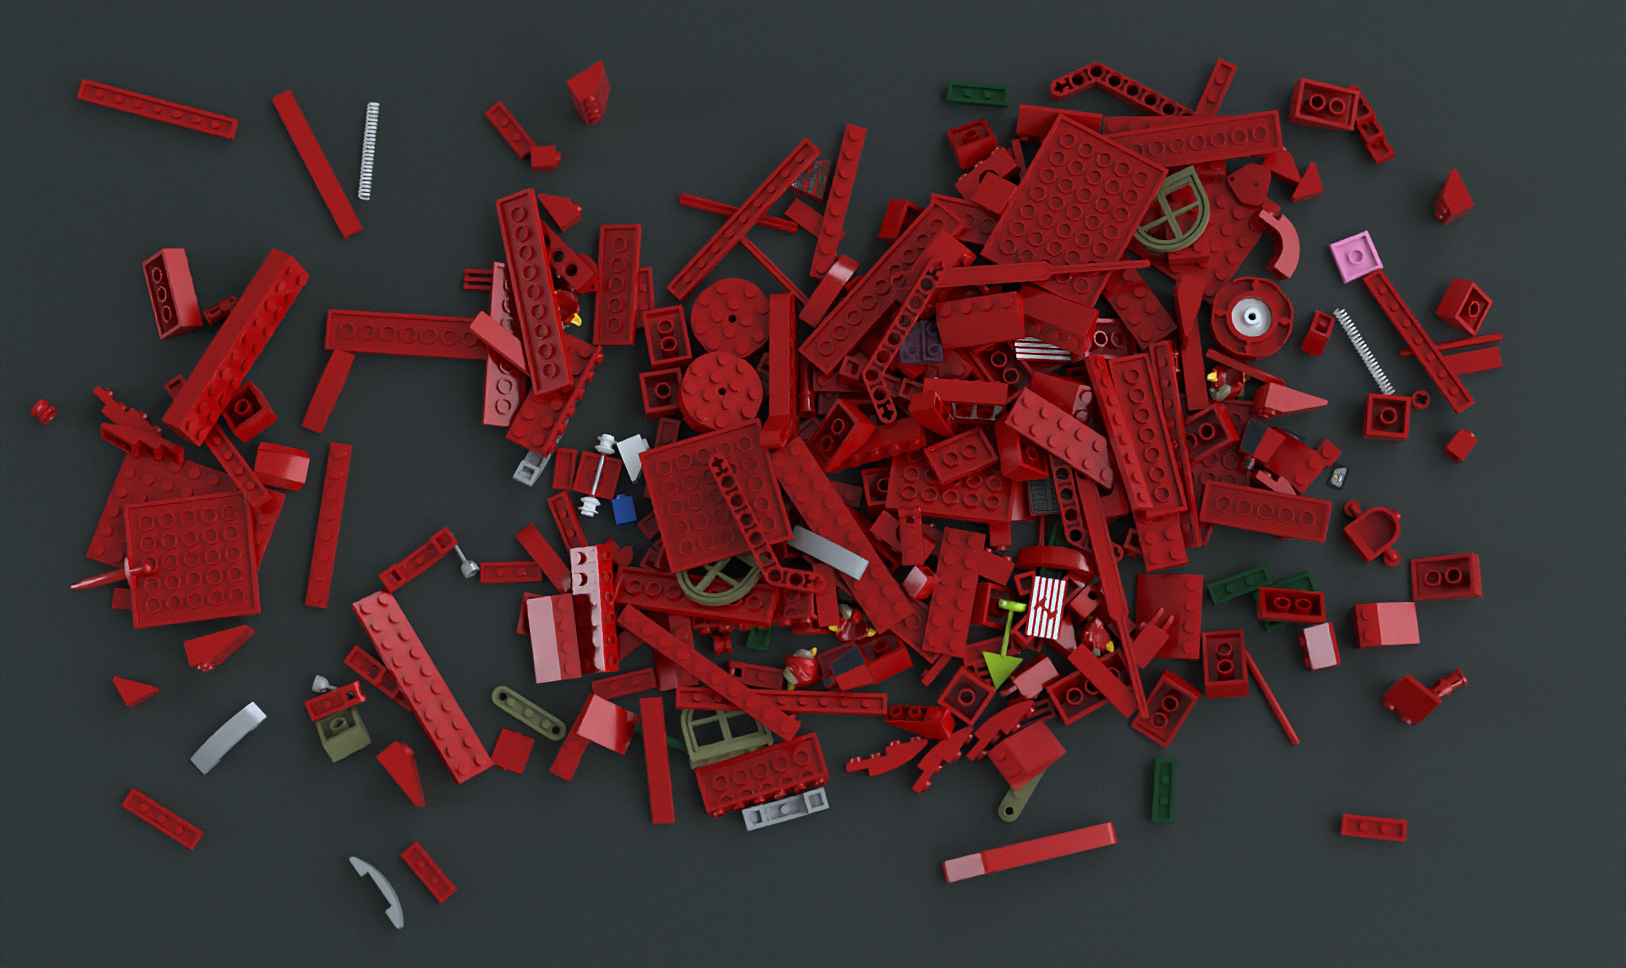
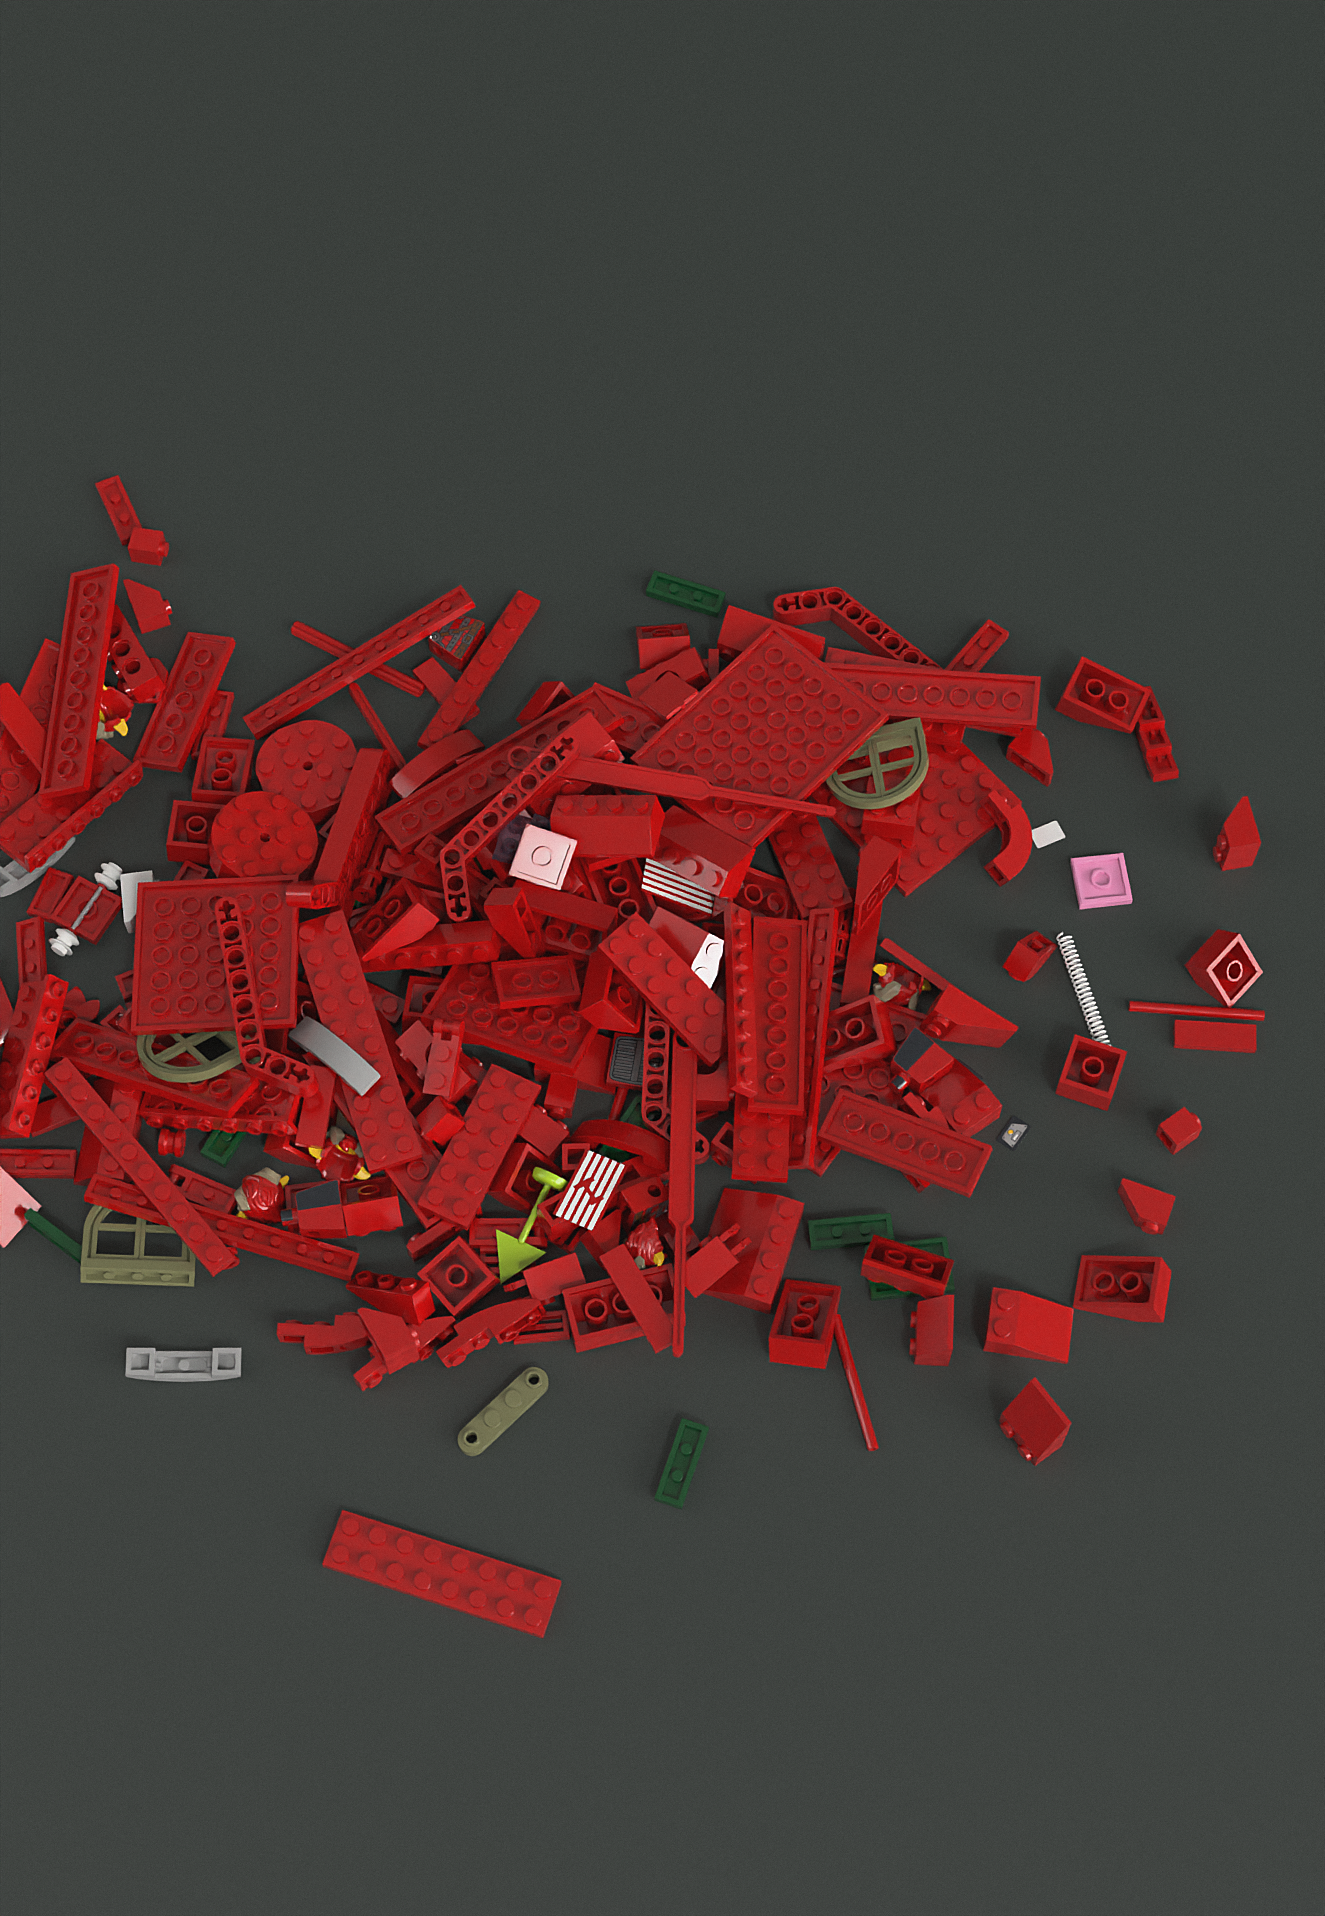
camera: 10 degrees right, 15 degrees down
(467, 279) = (12, 656): red tile -> none
(590, 93) = (222, 477): red slope -> none
(624, 510) = (105, 957): blue brick -> none
(657, 760) = (40, 1259): red tile -> none
(762, 775) = (169, 1315): red bracket -> none
(934, 758) = (391, 1338): none -> red slope
(939, 356) = (542, 857): none -> tile
(1015, 913) = (442, 1574): none -> red plate
(1026, 754) = (513, 1370): red slope -> none
(1029, 852) = (481, 1493): red beam -> none
(1167, 708) = (714, 1360): red slope -> none
(1244, 183) = (982, 761): red piece -> none
(1248, 338) = (948, 917): red piece -> none
(1306, 227) = (1047, 834): none -> white sticker
(1309, 186) = (1060, 785): red slope -> none
(1328, 452) = (1009, 1099): red plate -> none
(1373, 532) = (1040, 1209): red piece -> none
(1373, 827) = (947, 1581): red plate -> none
(1418, 341) = (1155, 994): red plate -> none
(1421, 393) = (1146, 1060): red bush -> none
(1446, 685) = (1086, 1423): red piece -> none
(1450, 511) = (1146, 1206): none -> red slope

